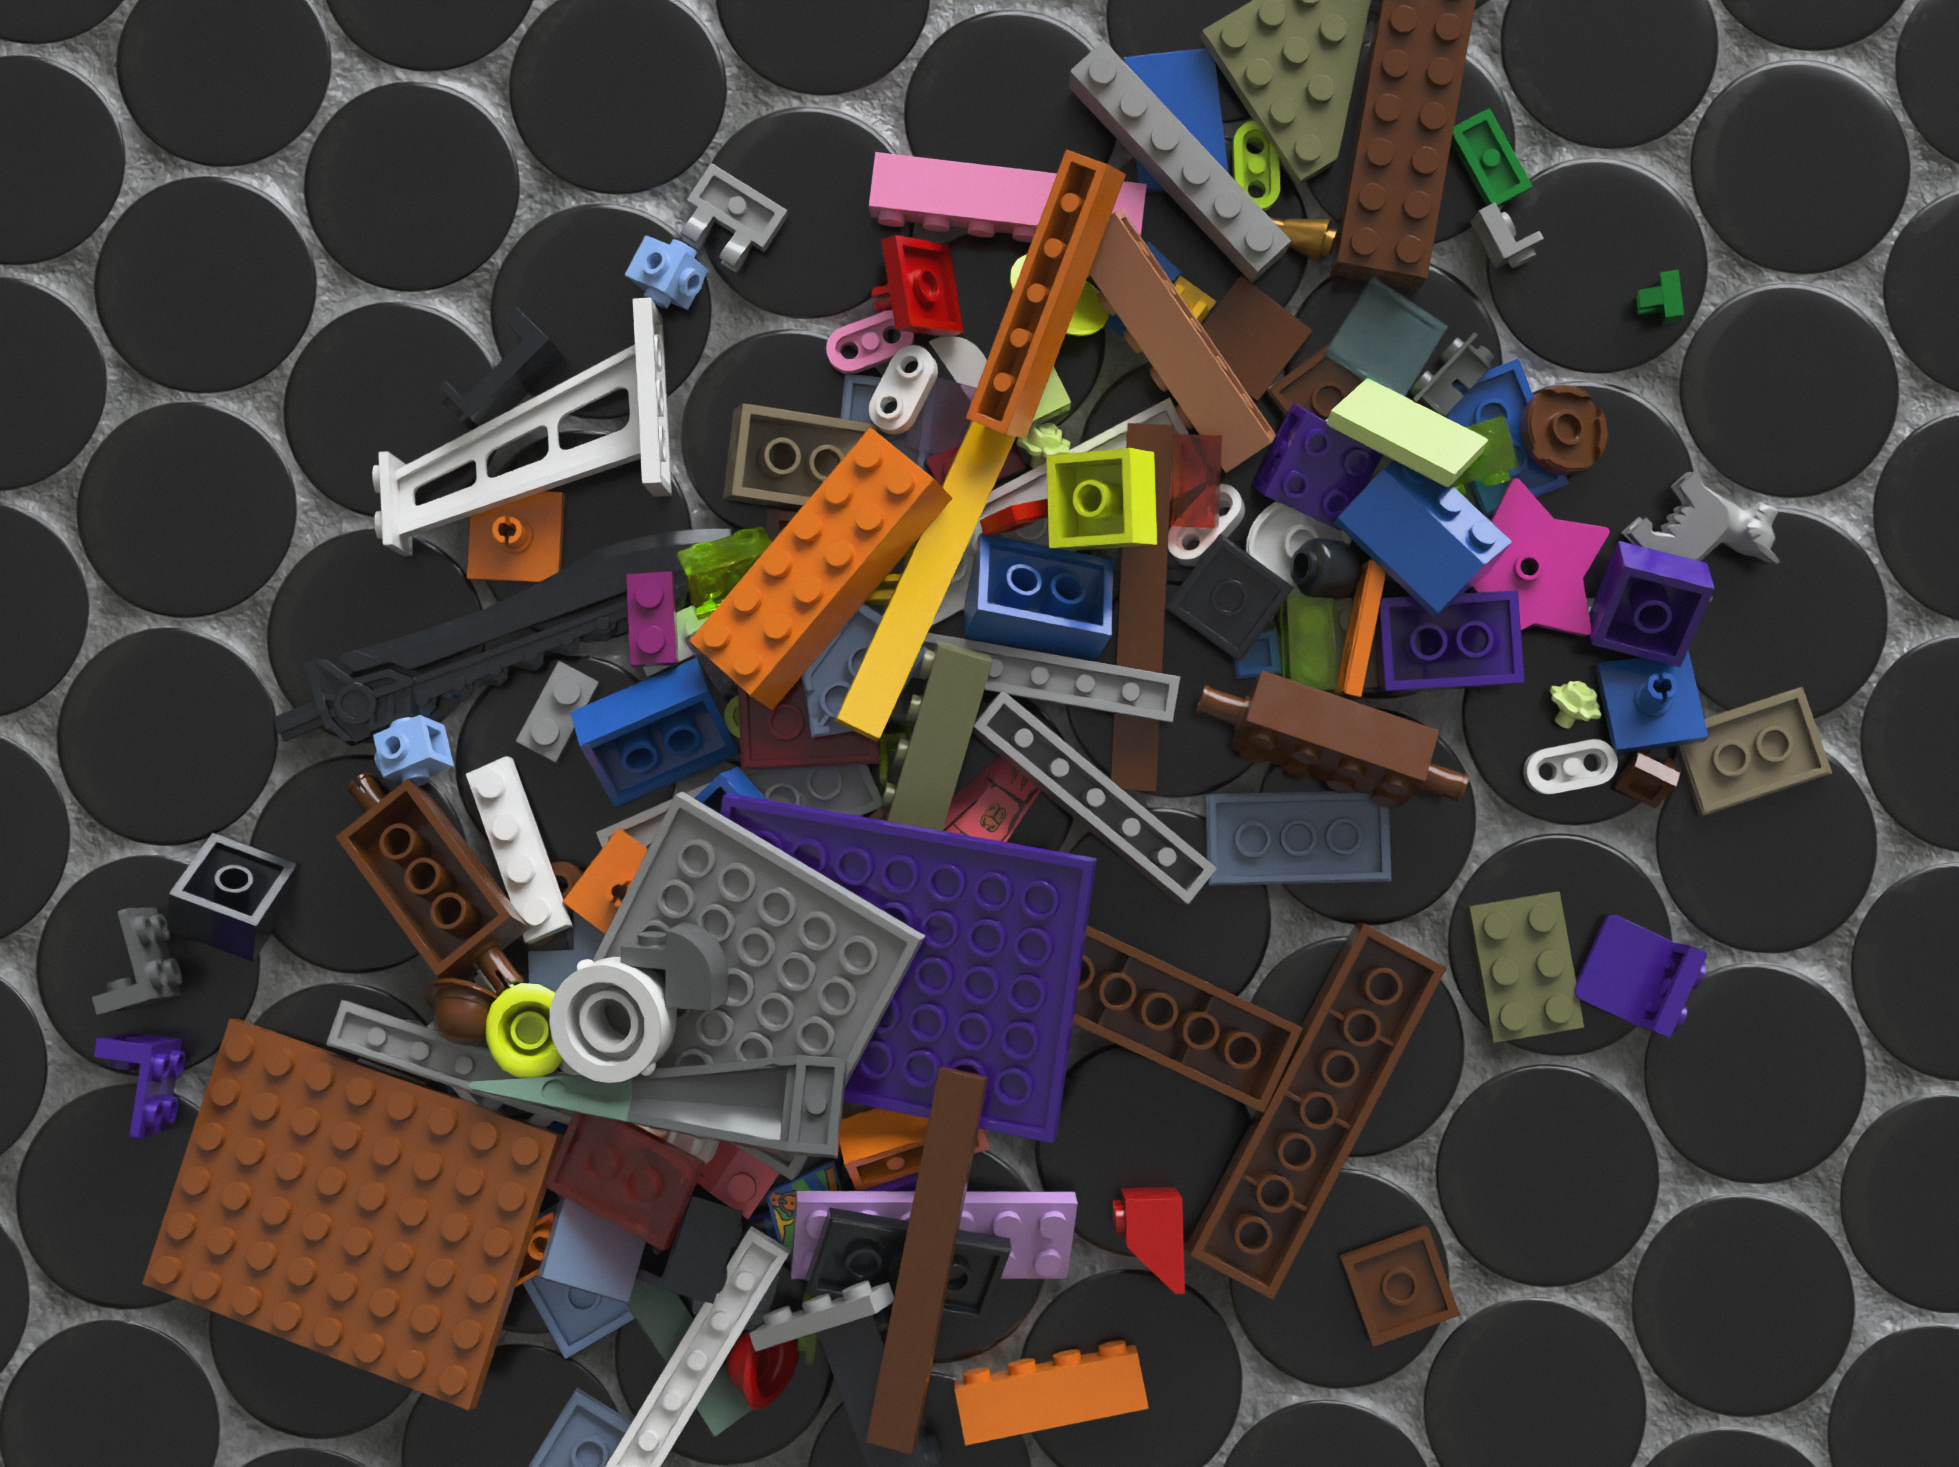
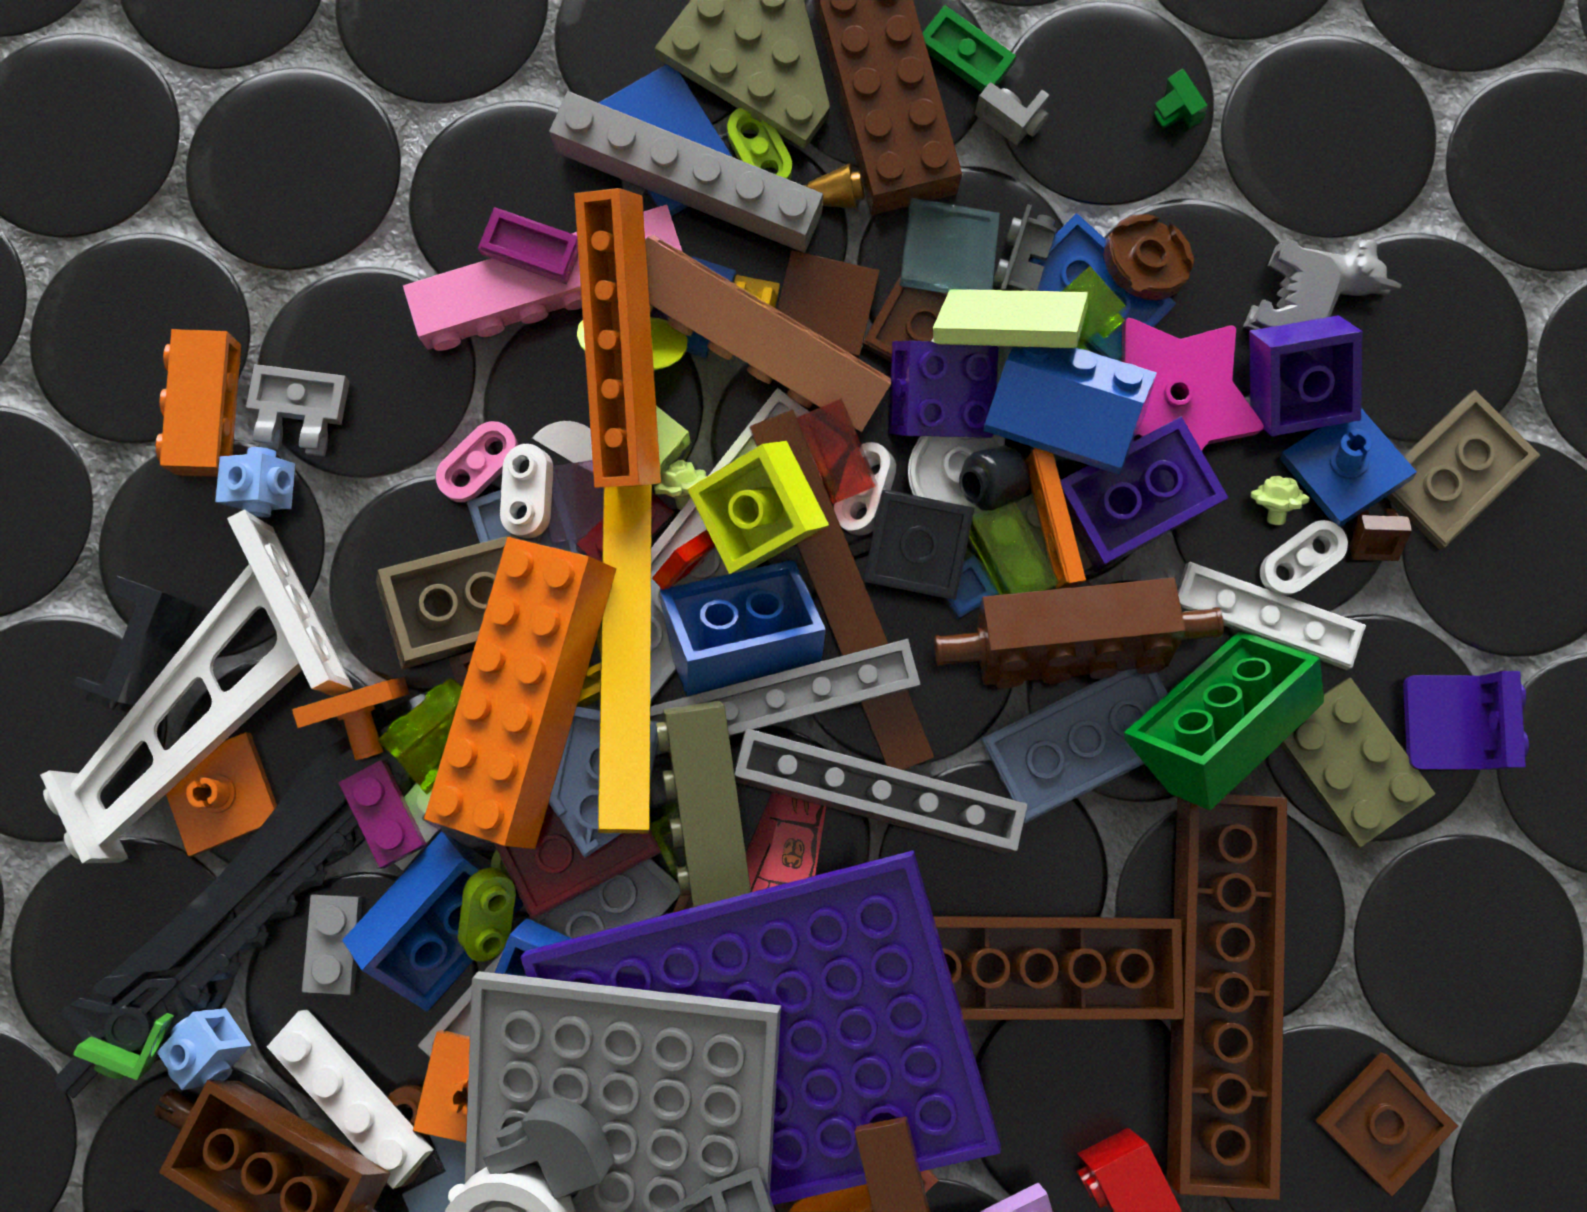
camera: 25 degrees left, 5 degrees down
(339, 729) = (118, 1062): none -> bright green bracket
(646, 175) = (198, 401): none -> orange brick
(667, 518) = (355, 712): none -> orange tile
(698, 753) = (486, 924): none -> lime plate
(919, 287) = (499, 390): red tile -> none
(1006, 167) = (529, 245): none -> magenta tile
(1429, 874) = (1227, 717): none -> green slope
(1515, 804) = (1272, 615): none -> white tile

